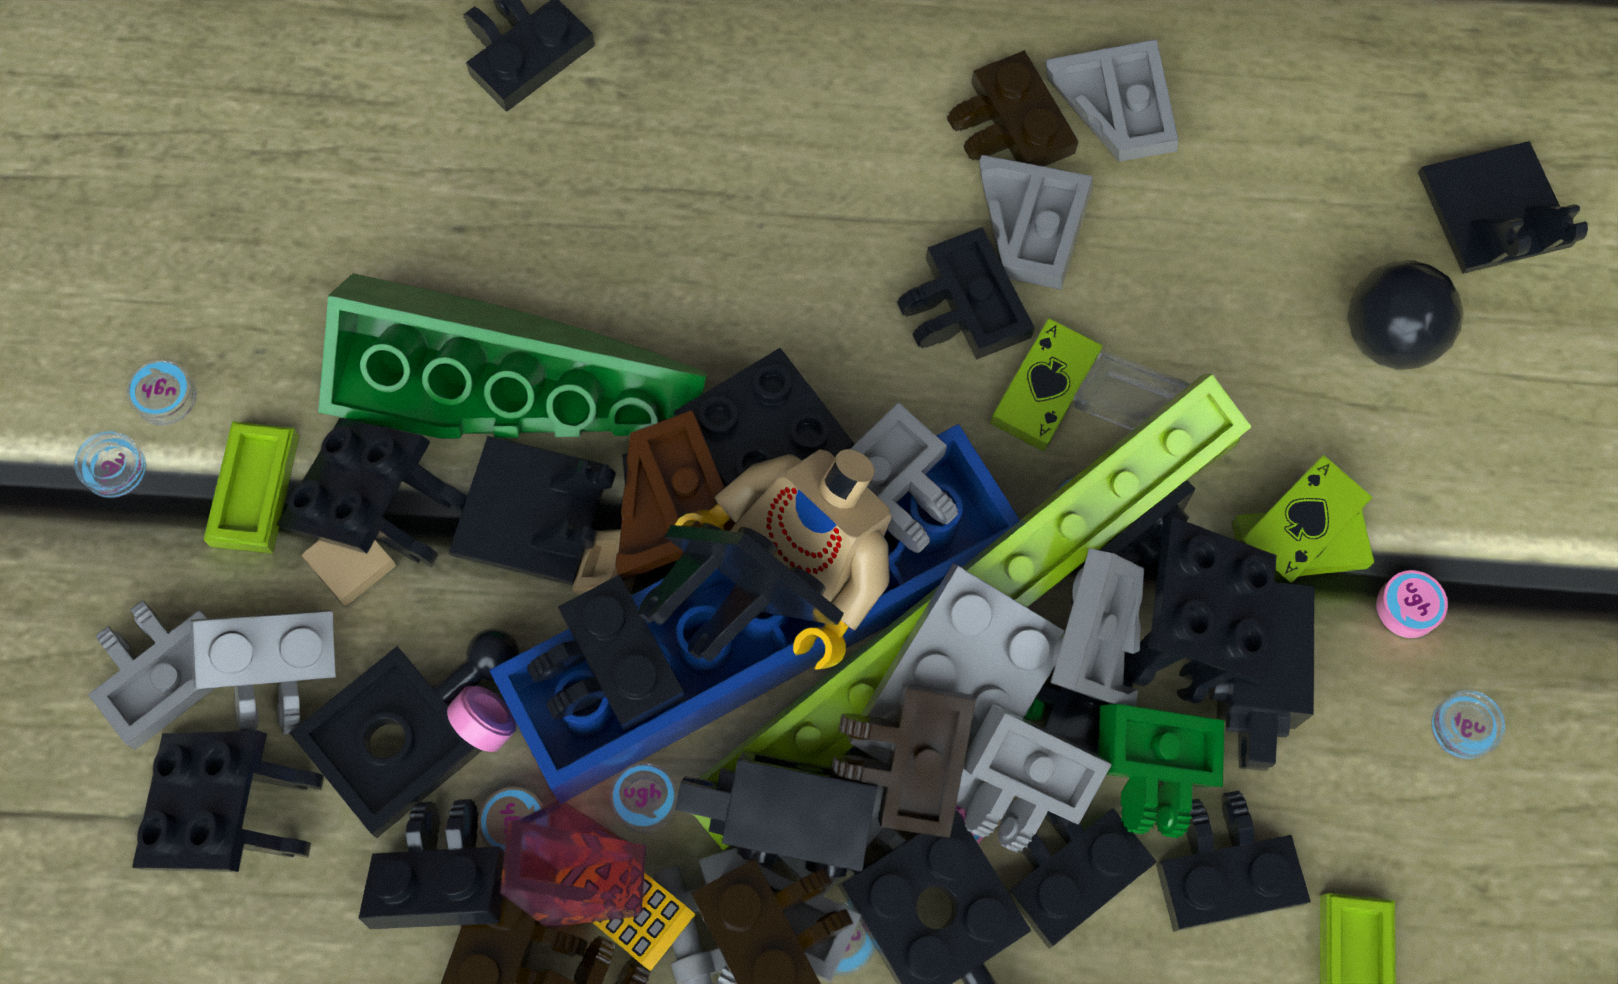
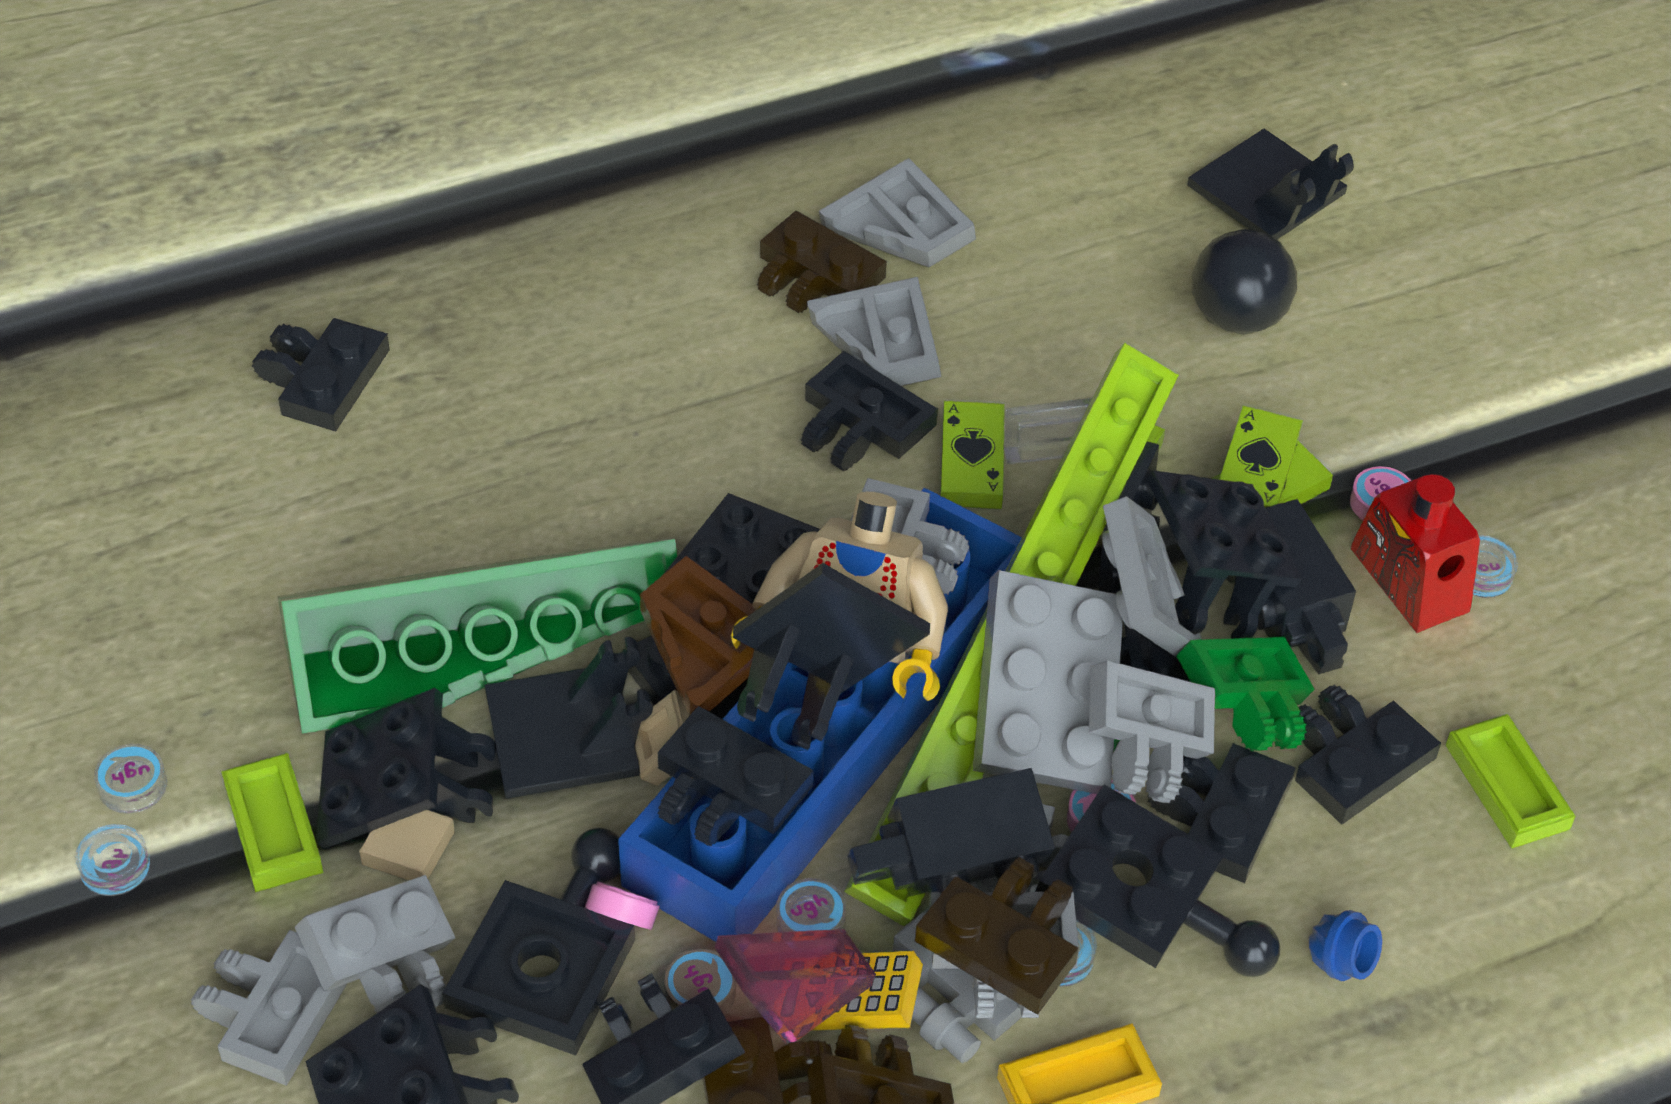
camera: 25 degrees left, 20 degrees down
(923, 758) = (1055, 735): dark brown hinge -> none
(1404, 687) = (1420, 551): none -> red torso

